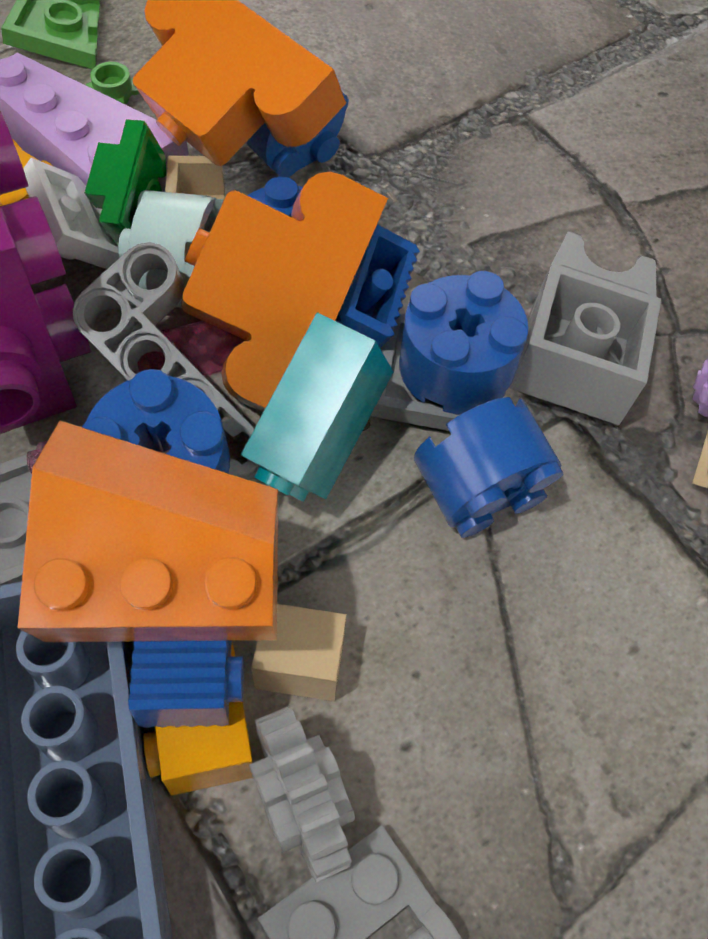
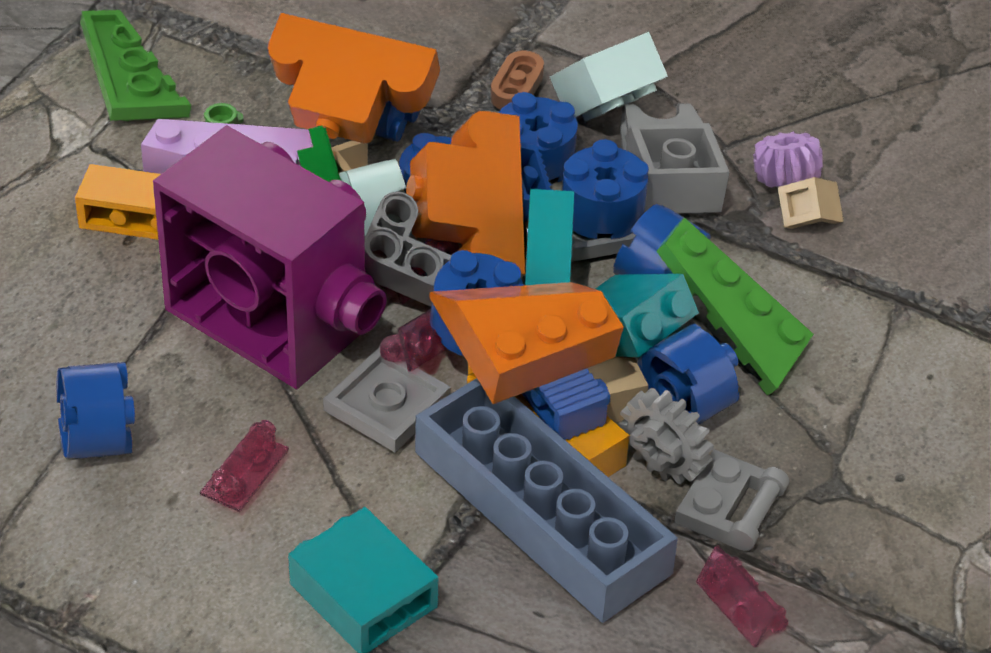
camera: 25 degrees left, 15 degrees down
(380, 551) = (648, 308): none -> teal brick
(405, 697) = (693, 369): none -> blue brick
(445, 222) = (547, 125): none -> blue brick
(467, 154) = (519, 73): none -> nougat plate
(553, 621) = (750, 316): none -> bright green wing
(573, 186) = (610, 77): none -> light aqua brick

